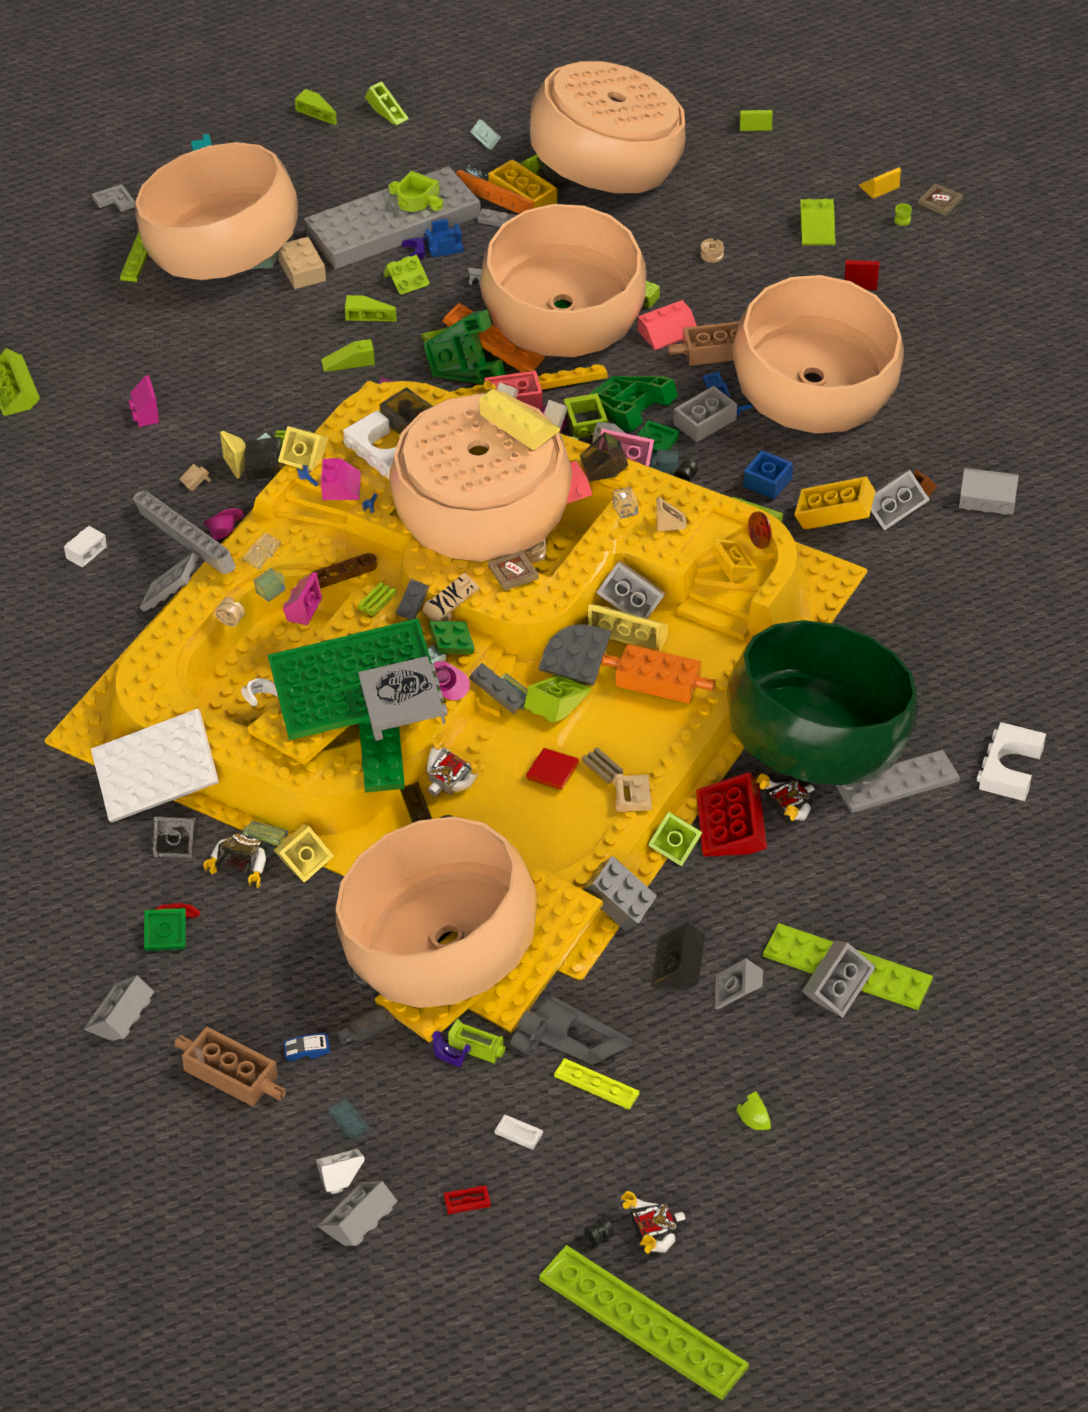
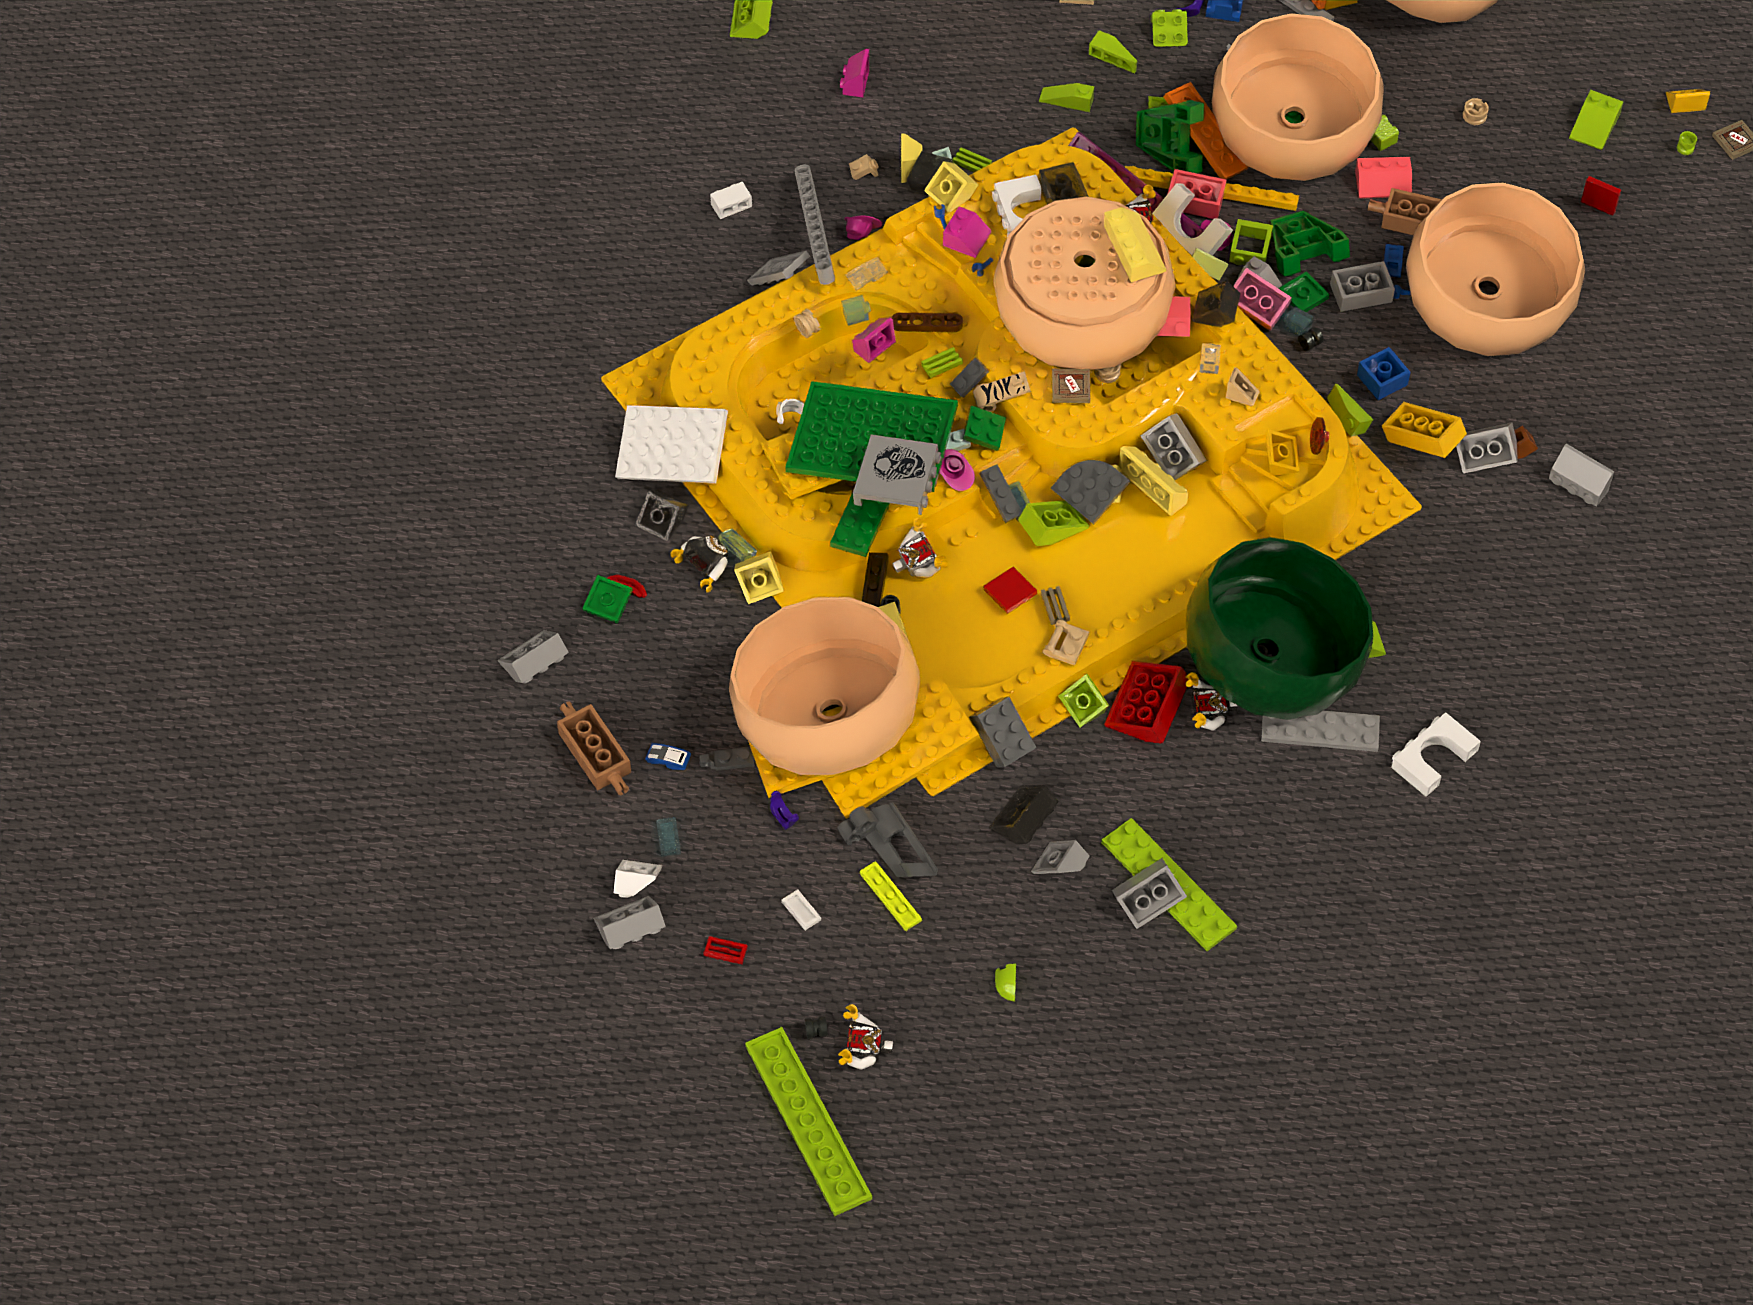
camera: 25 degrees right, 10 degrees up
(482, 1044) = (809, 814): lime window -> none
(658, 673) = (1154, 537): orange brick -> none

